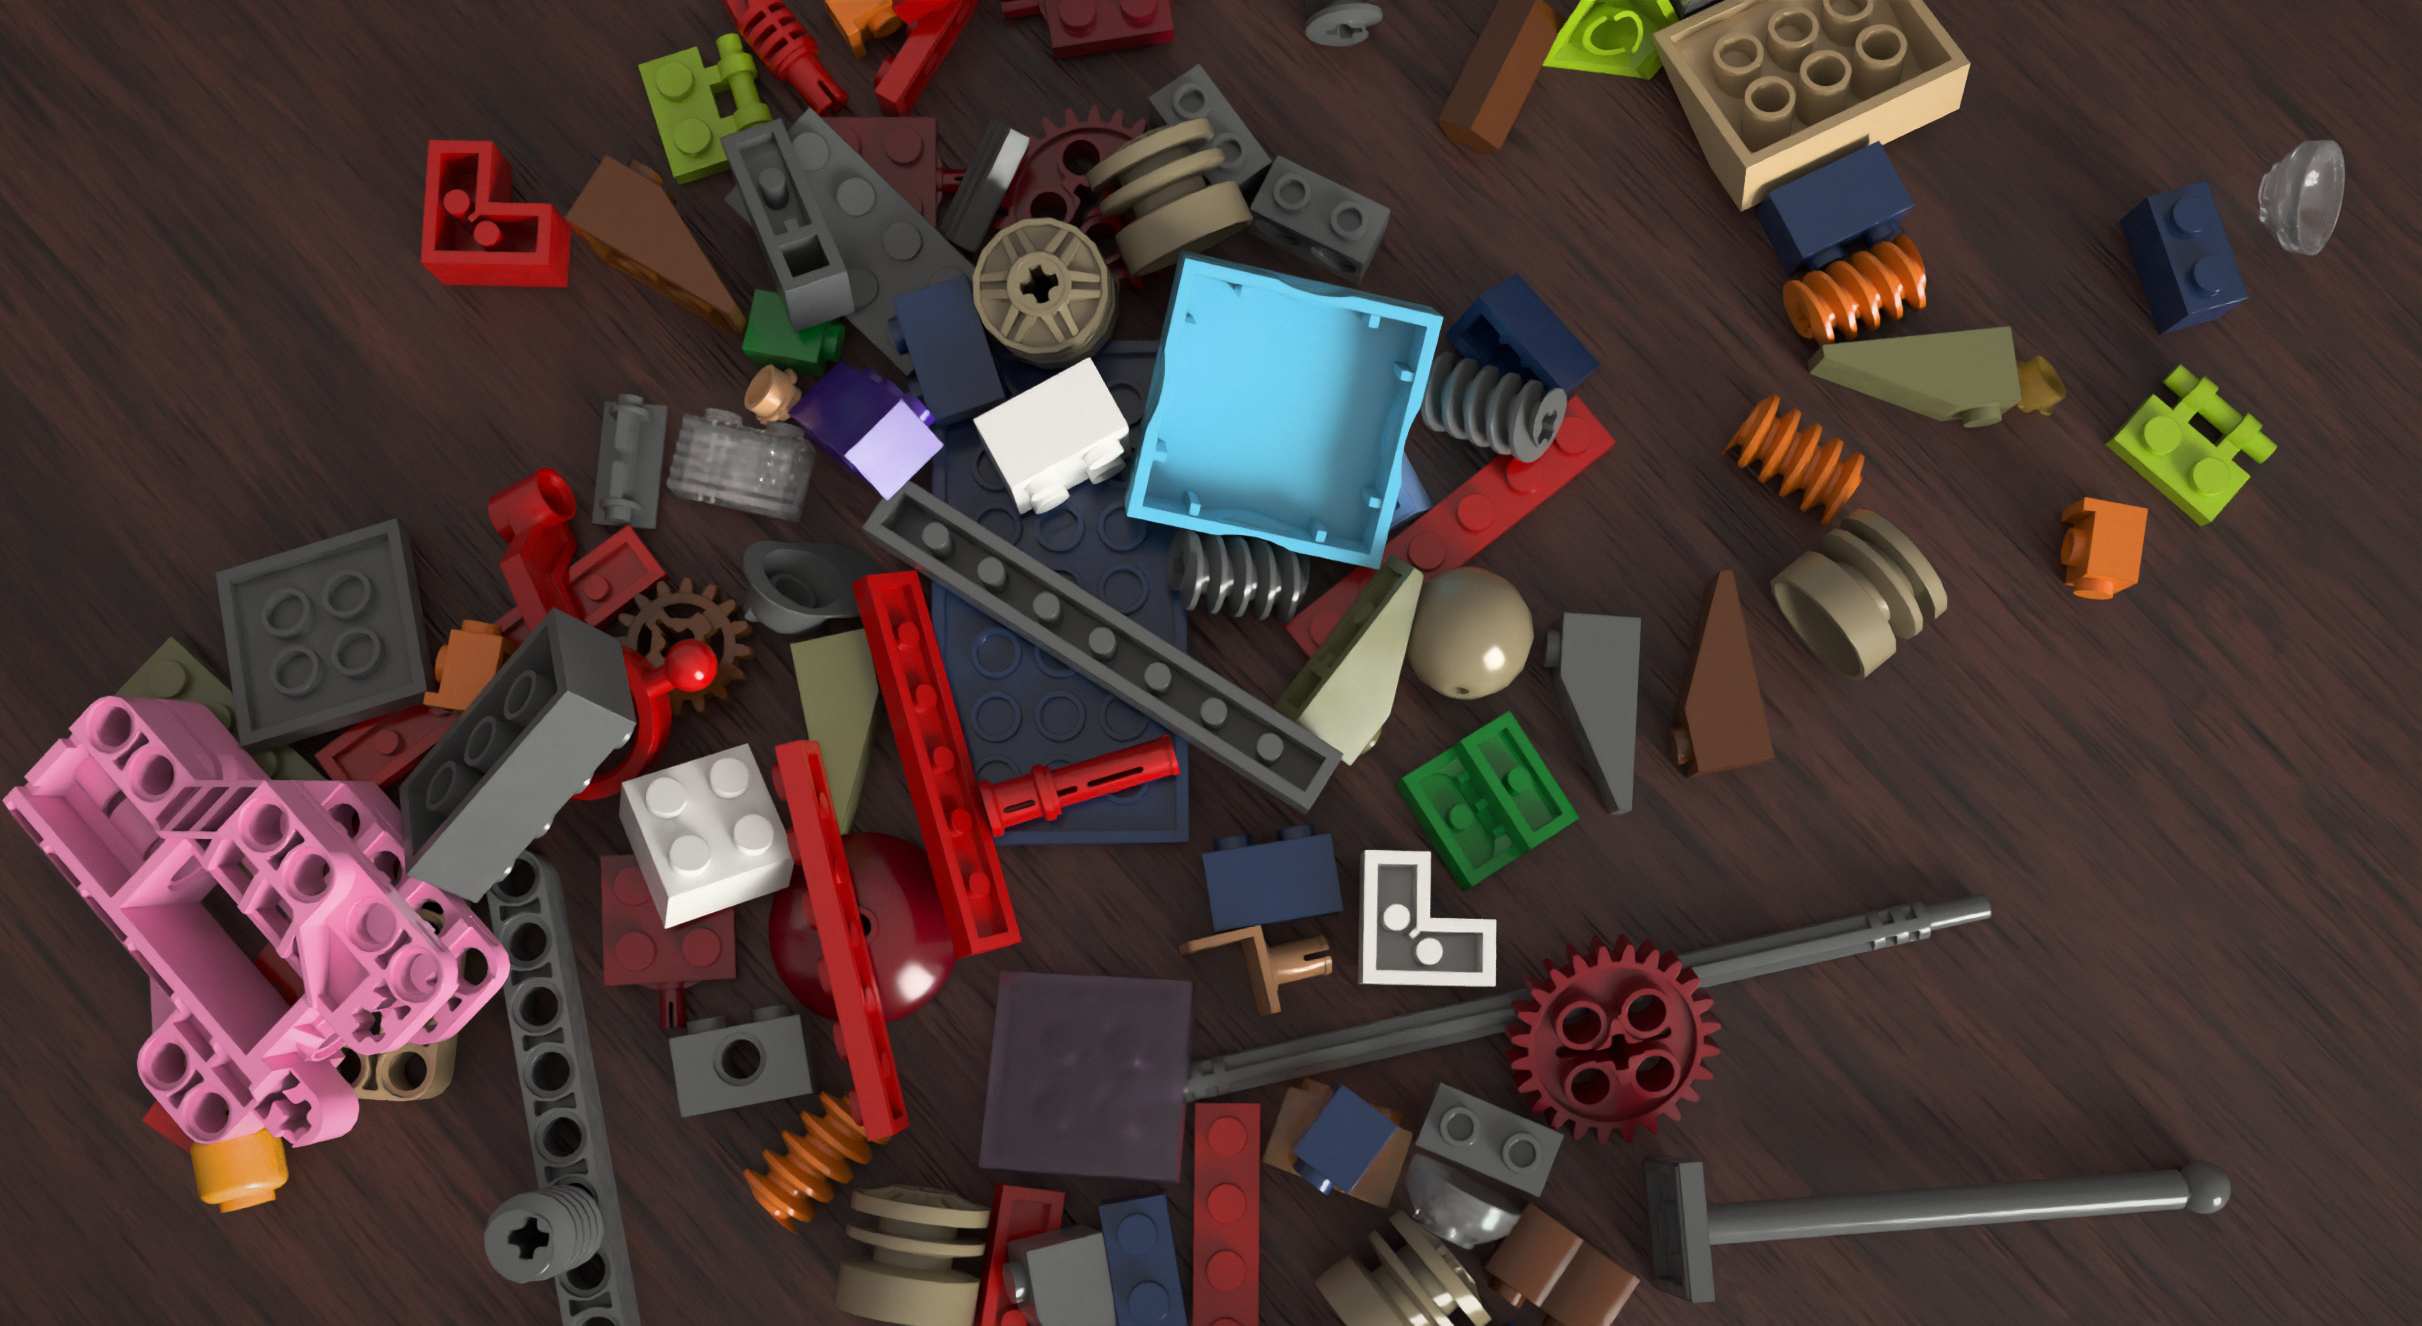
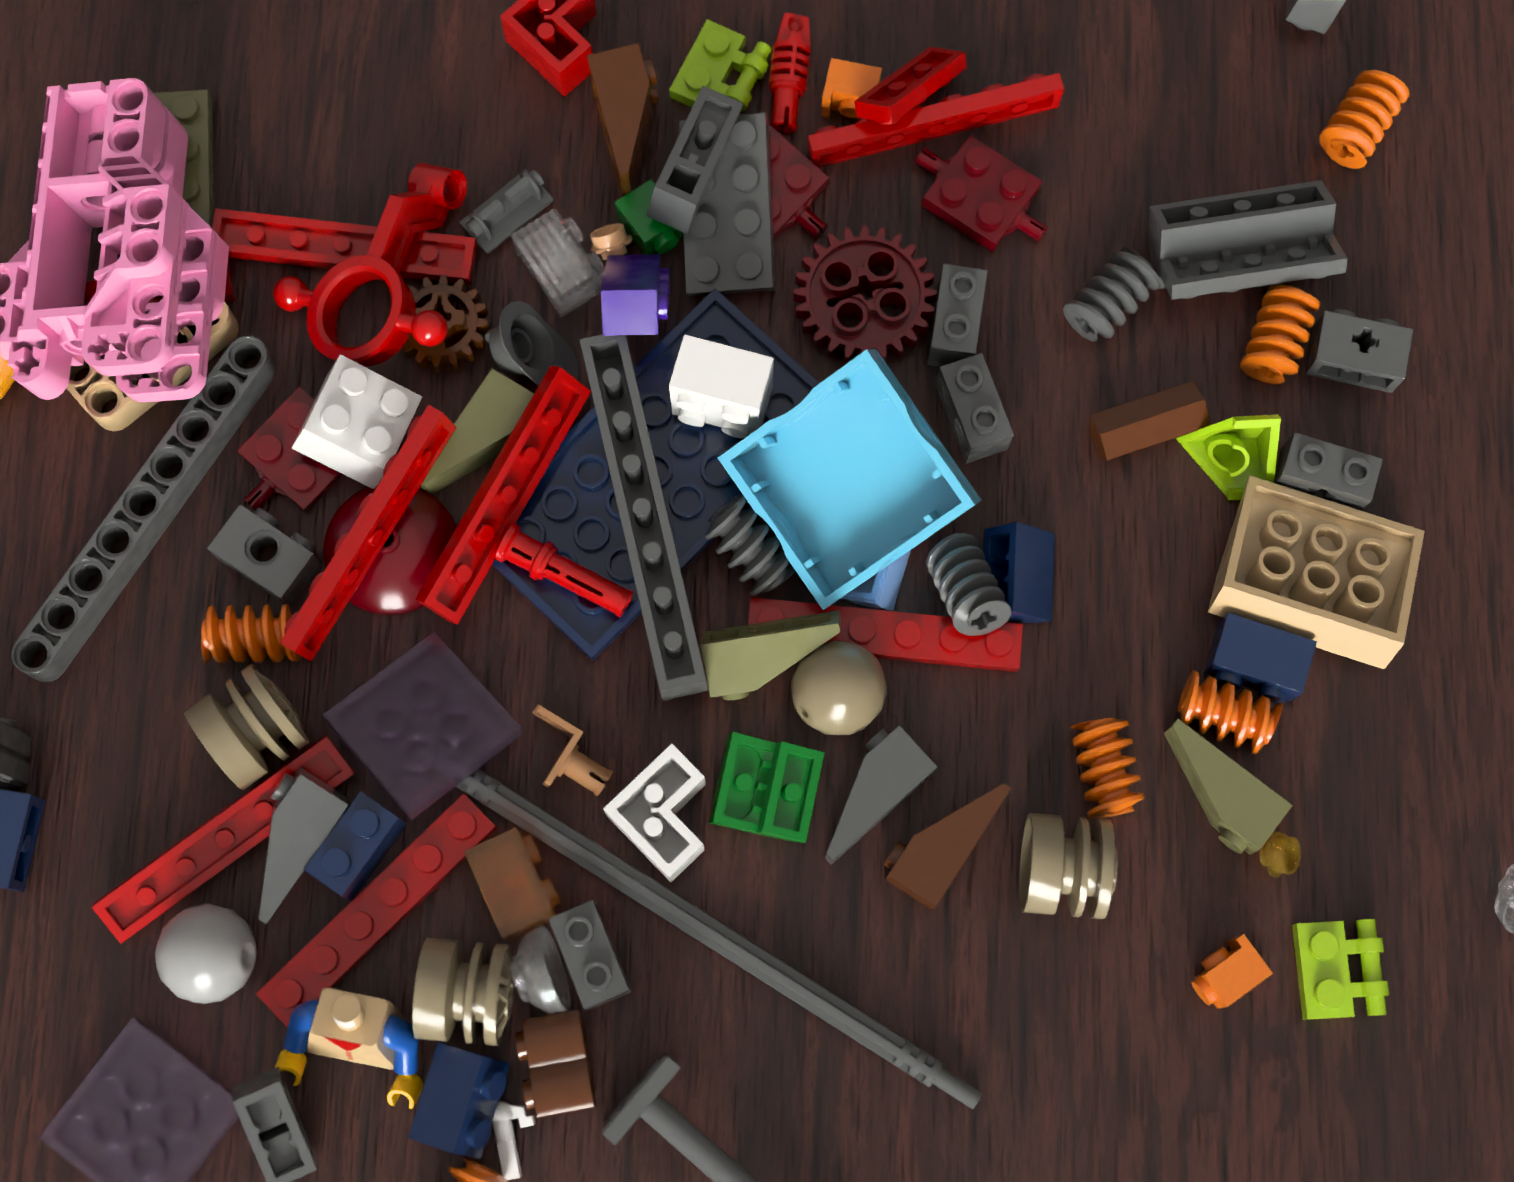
camera: 45 degrees right, 5 degrees down
(325, 636) = (277, 156): dark grey plate -> none
(468, 665) = (327, 238): orange brick -> none
(516, 756) = (302, 292): dark grey brick -> none
(543, 1233) = (83, 533): dark grey piece -> none
(949, 351) = (715, 295): dark blue brick -> none
(984, 185) = (817, 232): dark grey tile -> none
(1080, 306) = (796, 334): dark tan wheel -> none
(1168, 196) = (902, 310): dark tan wheel -> none
(1271, 880) = (613, 718): dark blue brick -> none
(1339, 1140) = (507, 870): dark blue brick -> none
(1607, 986) = (683, 1003): dark red gear -> none
(2183, 258) = (1431, 863): dark blue brick -> none

